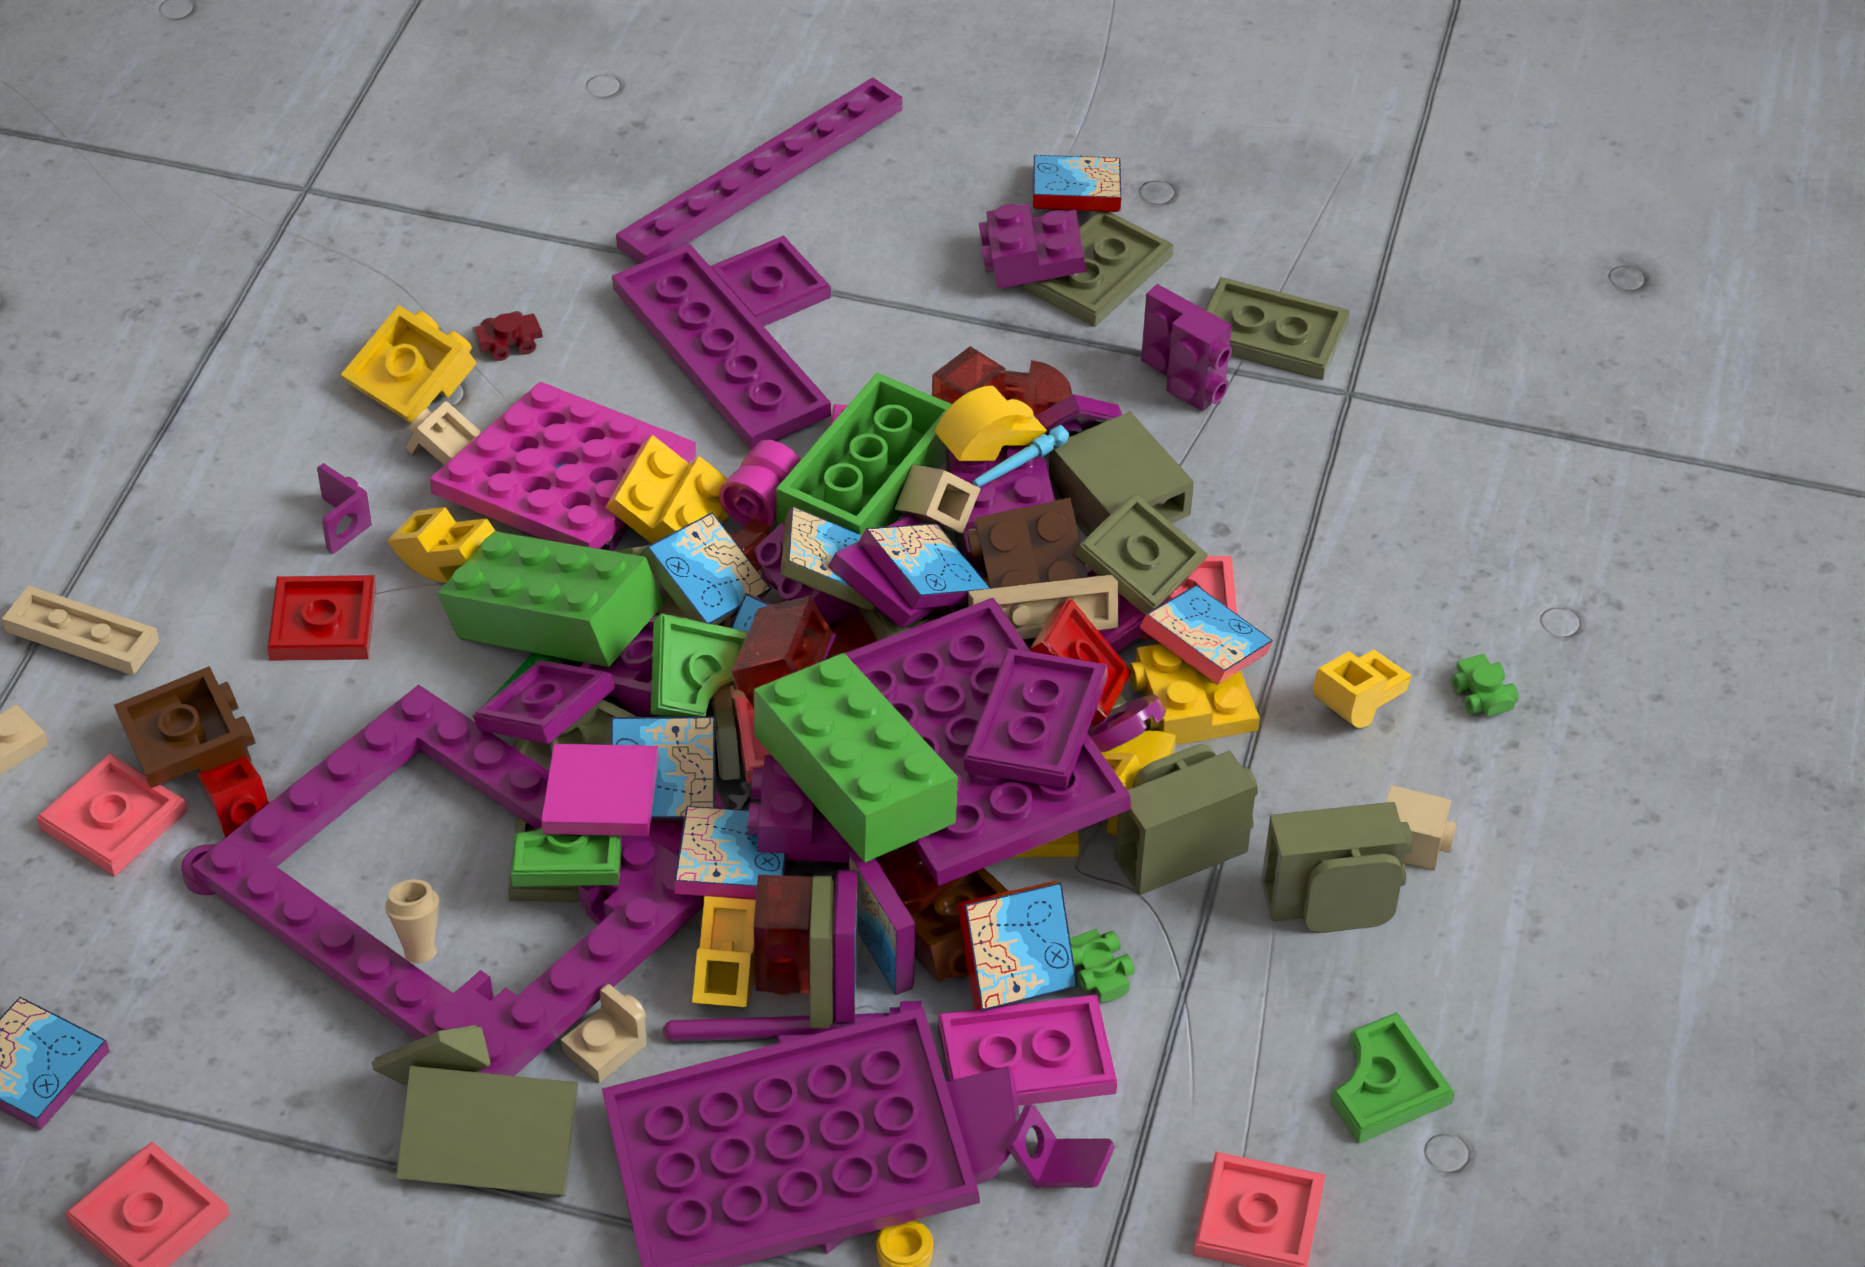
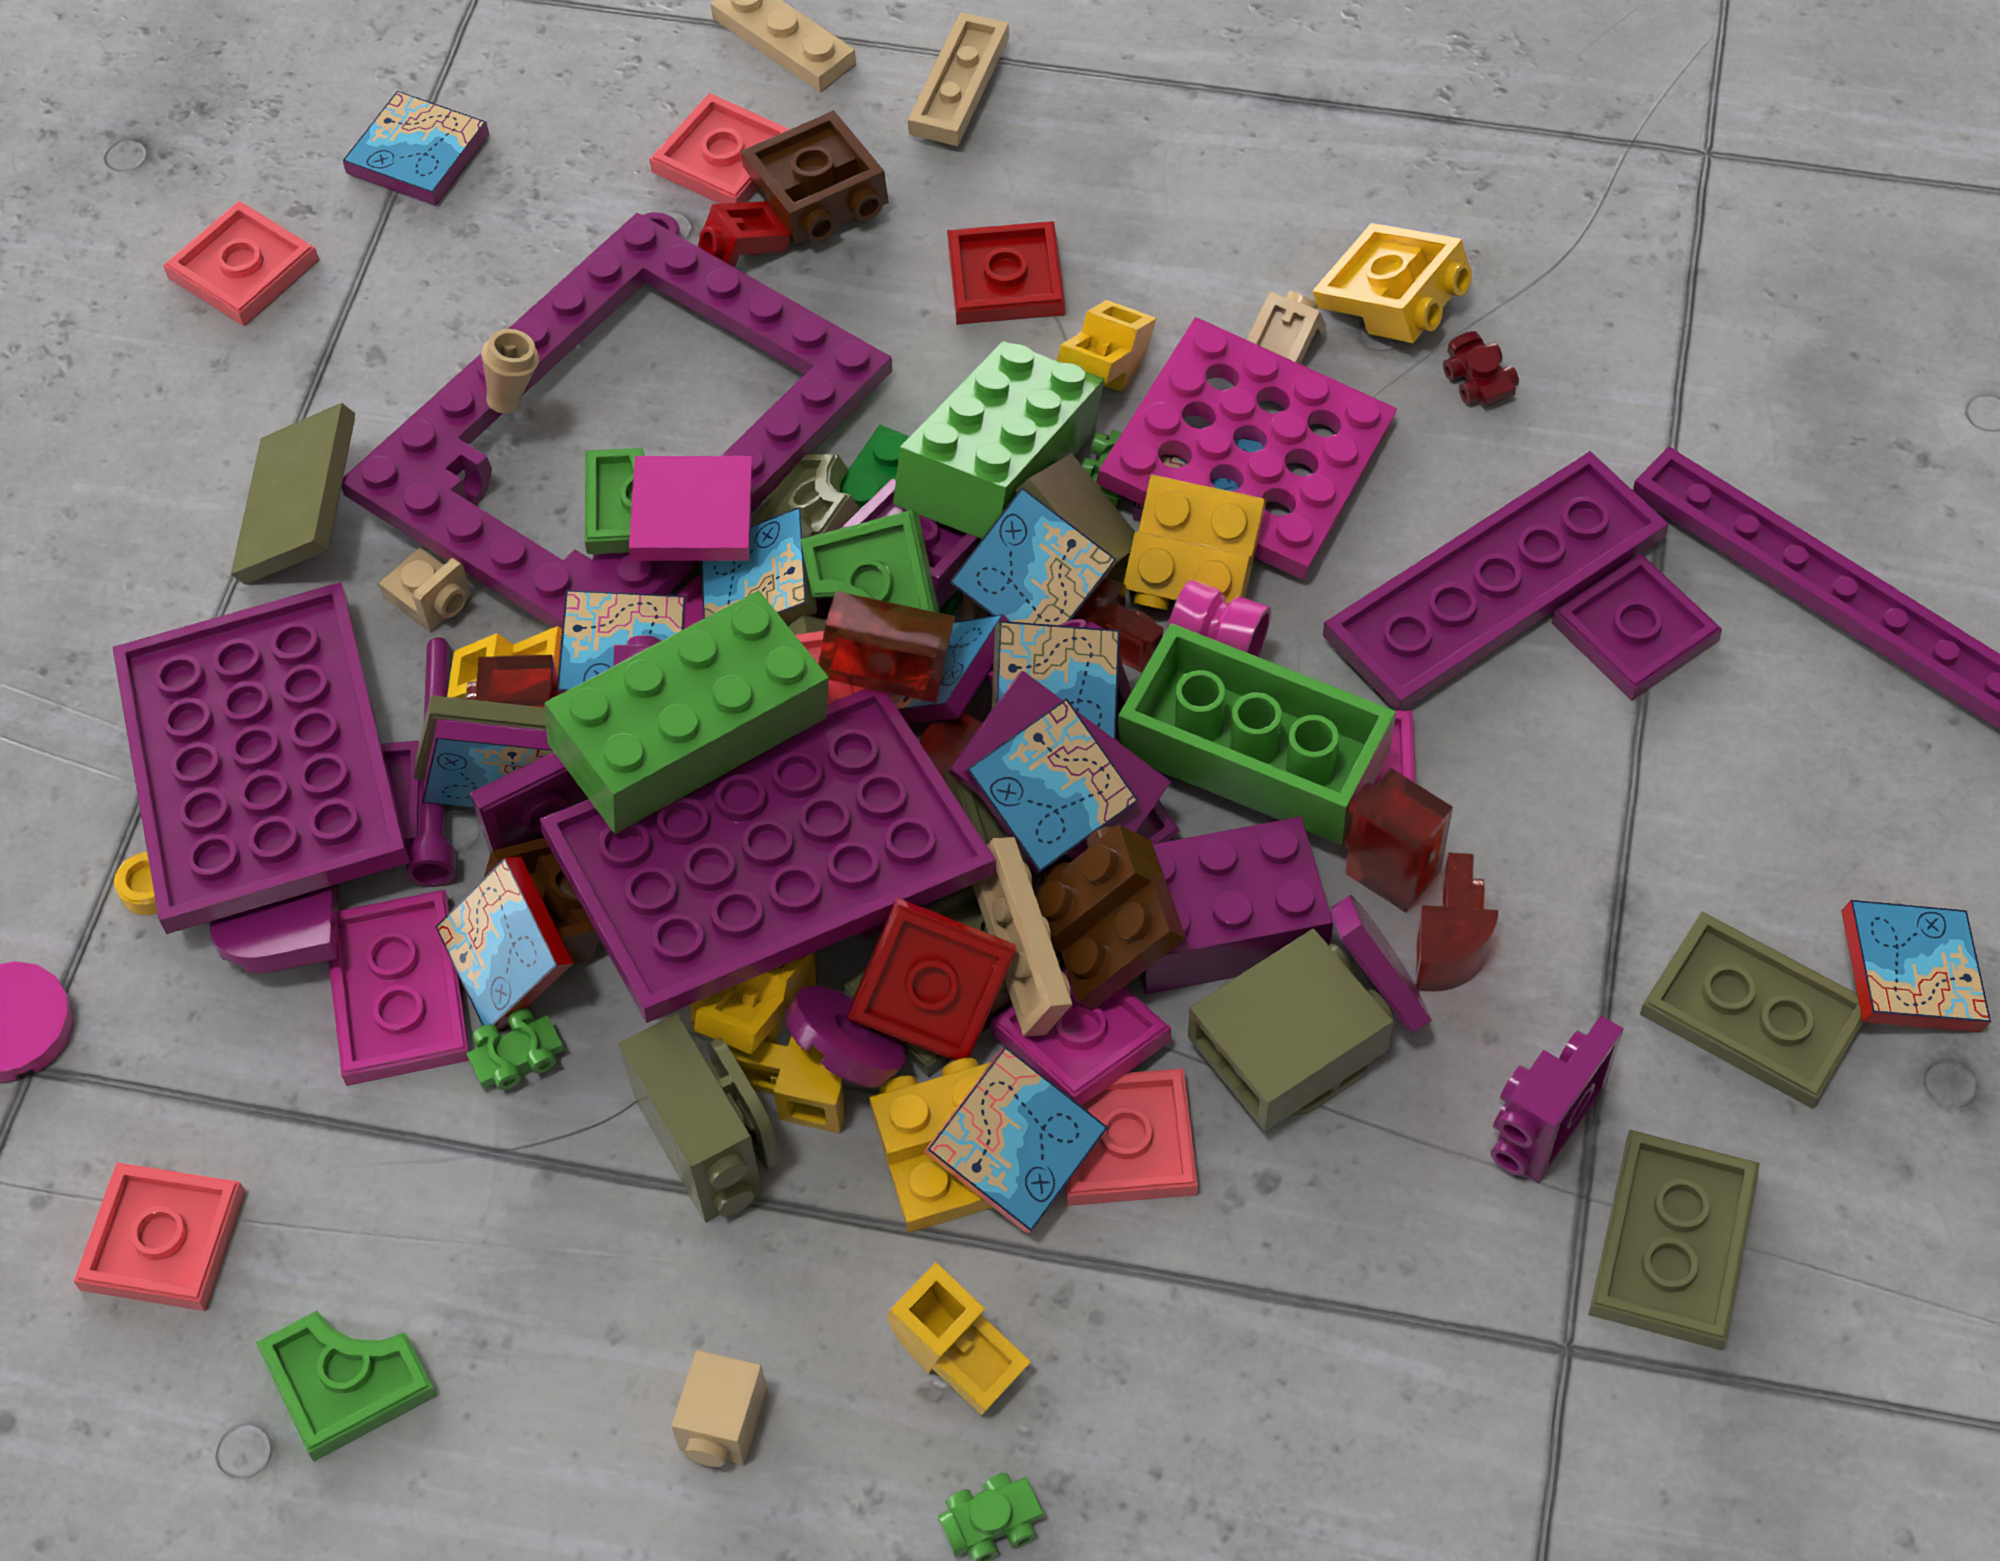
camera: 90 degrees right, 10 degrees up
(348, 500) = (1159, 267): magenta bracket -> none
(446, 1049) = (361, 423): olive slope -> none
(544, 701) = (835, 452): magenta tile -> none
(937, 498) = (1193, 804): tan brick -> none
(984, 422) = (1306, 833): yellow brick -> none
(1030, 248) = (1754, 909): magenta plate -> none
(1036, 718) = (771, 904): magenta tile -> none
(1038, 448) = (1295, 909): medium azure piece -> none
(1058, 1161) = (239, 1022): magenta bracket -> none
(1141, 553) = (1126, 1044): olive tile -> none
(1336, 866) = (621, 1297): olive brick -> none

